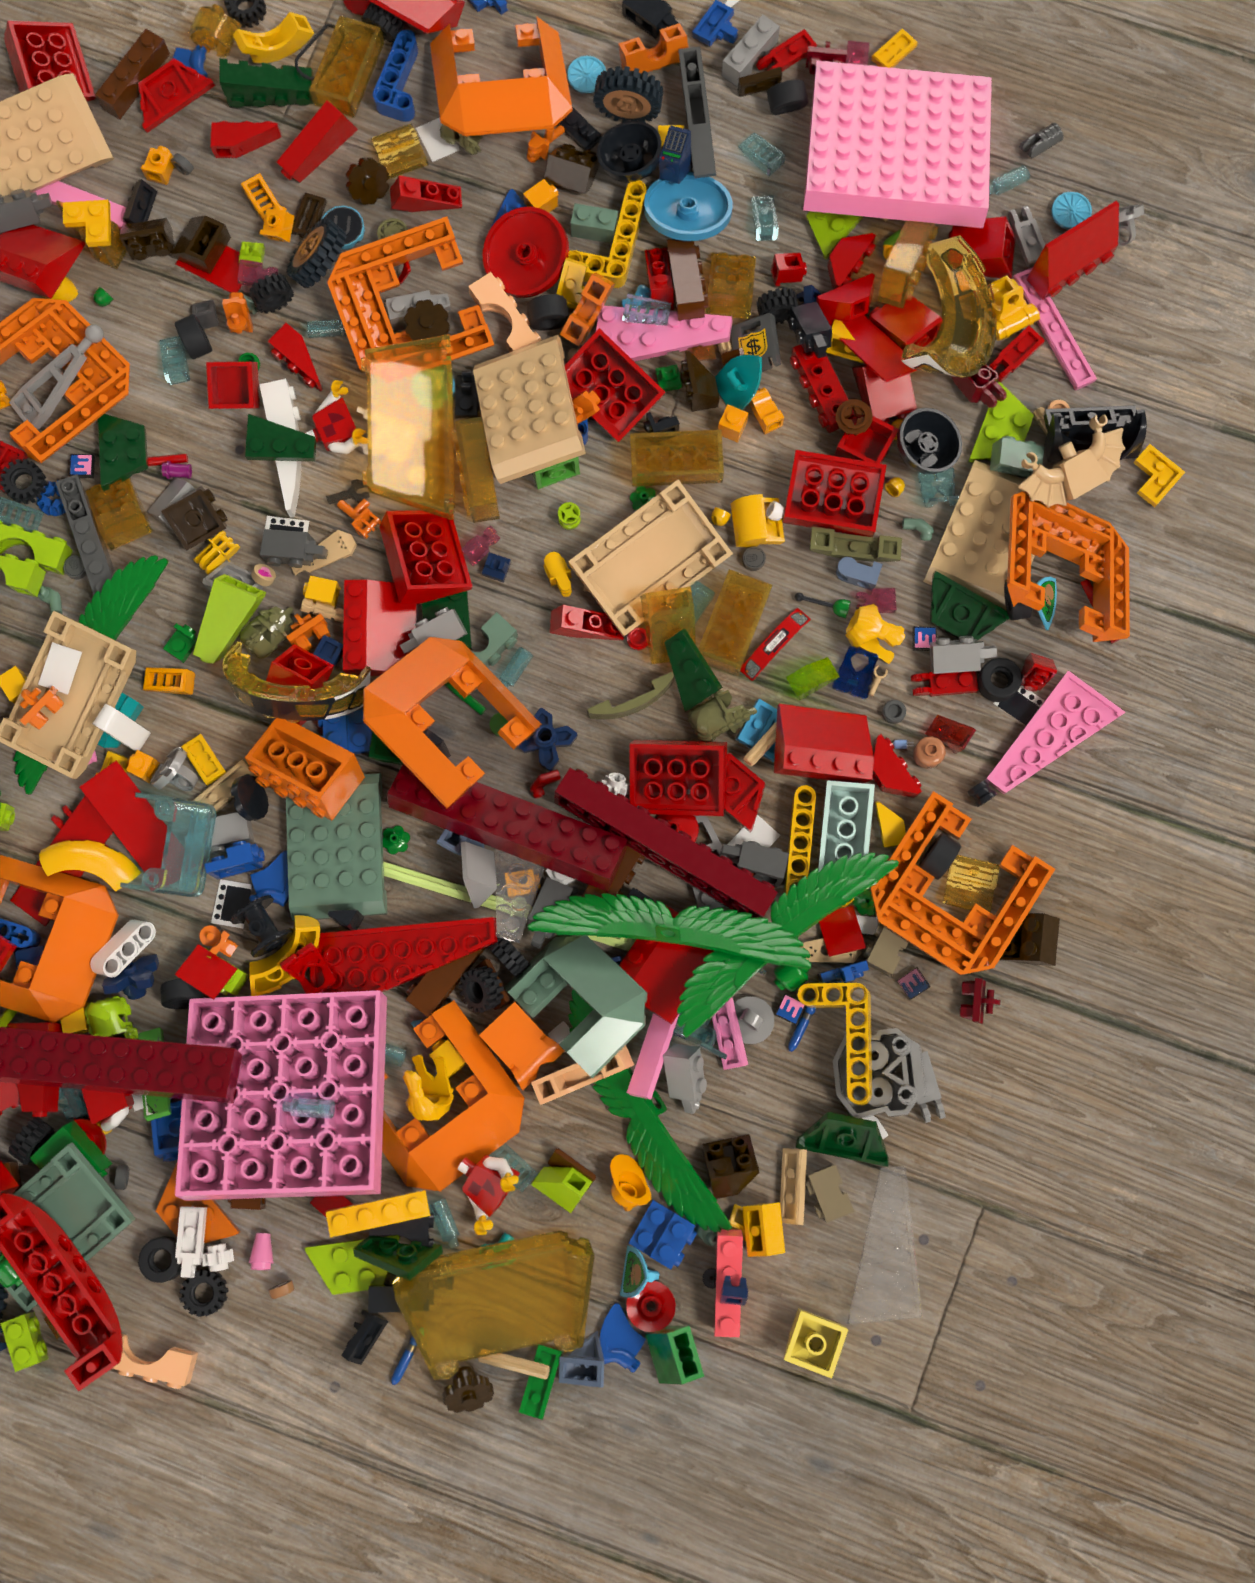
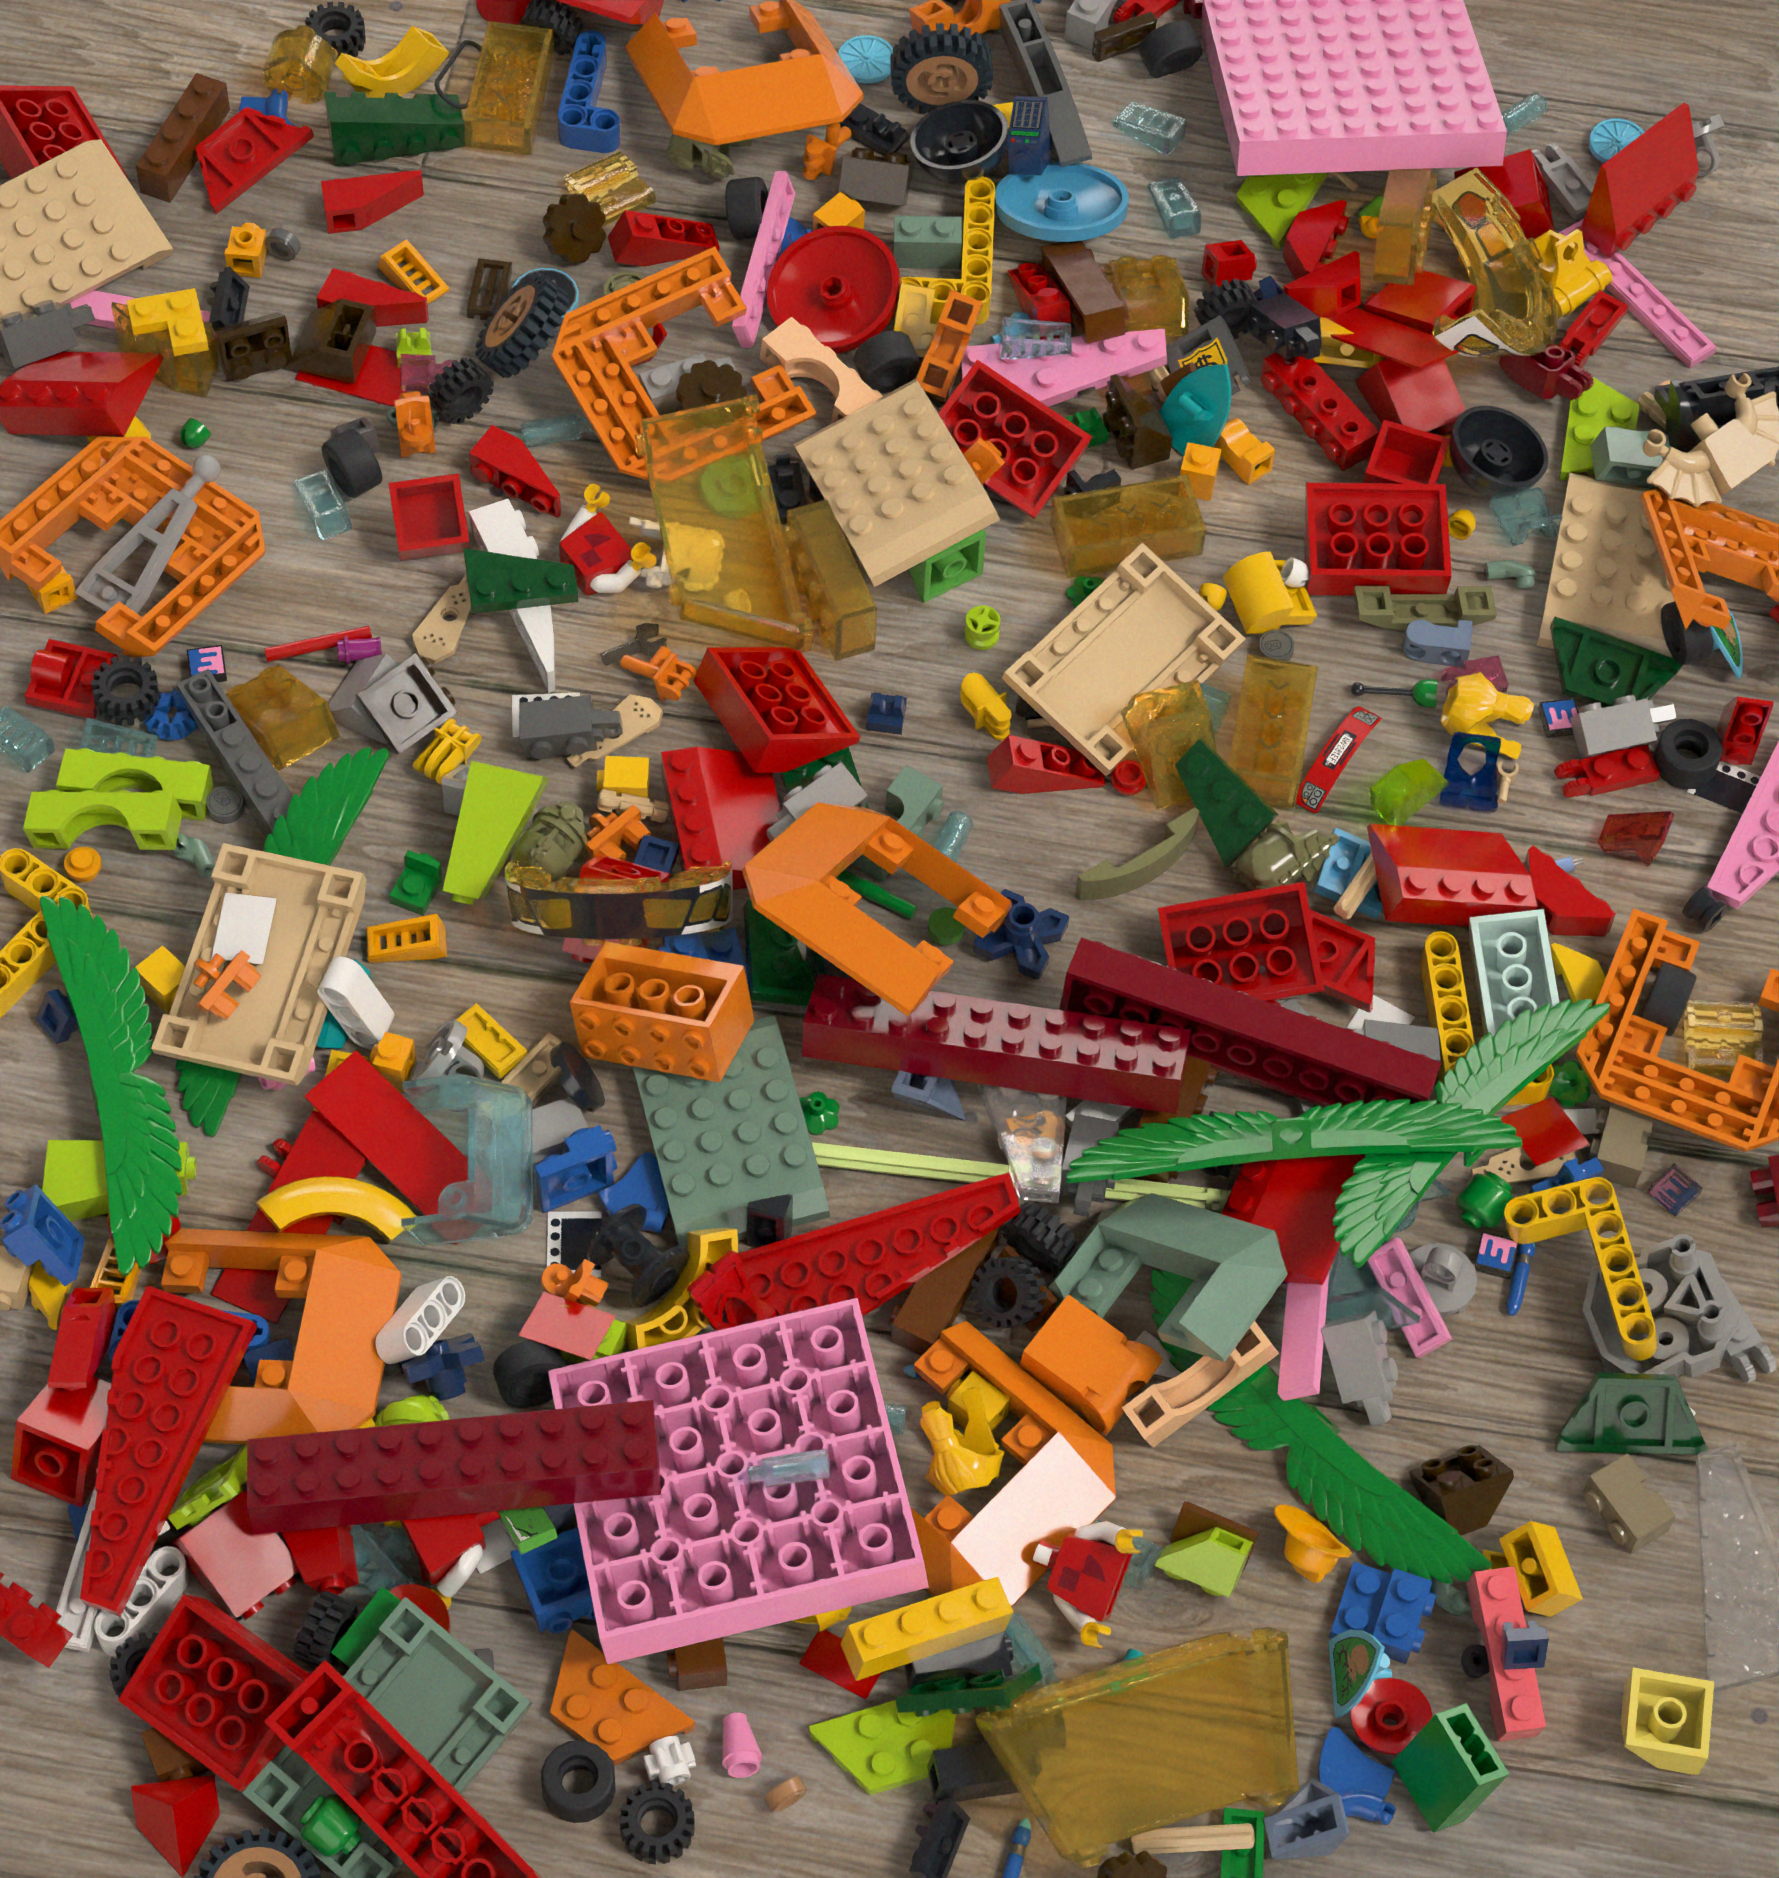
camera: 15 degrees left, 20 degrees down
(120, 449) = (266, 630): dark green wing -> none
(190, 1239) = (623, 1732): white hinge -> none
(227, 462) = (436, 637): none -> tan piece
(232, 215) = (390, 304): none -> red slope
(263, 575) = (528, 766): tan tile -> none
(277, 224) = (452, 310): light orange brick -> none
(316, 142) = (485, 188): red slope -> none
(434, 144) = (659, 172): white sticker -> none
(478, 546) = (853, 685): clear pink plate -> none
(478, 872) = (967, 1123): light grey slope -> none
(483, 181) = (745, 206): none -> black tyre
(487, 217) = (764, 257): none -> bright pink tile
(541, 781) = (1034, 988): red arm -> none
(793, 1185) = (1569, 1501): tan tile -> none
(861, 410) = (1387, 419): reddish brown gear -> none
(894, 711) = (1542, 822): dark grey tile -> none
(929, 752) = (1611, 863): nougat head -> none
(1042, 140) = (1552, 59): dark grey hinge -> none

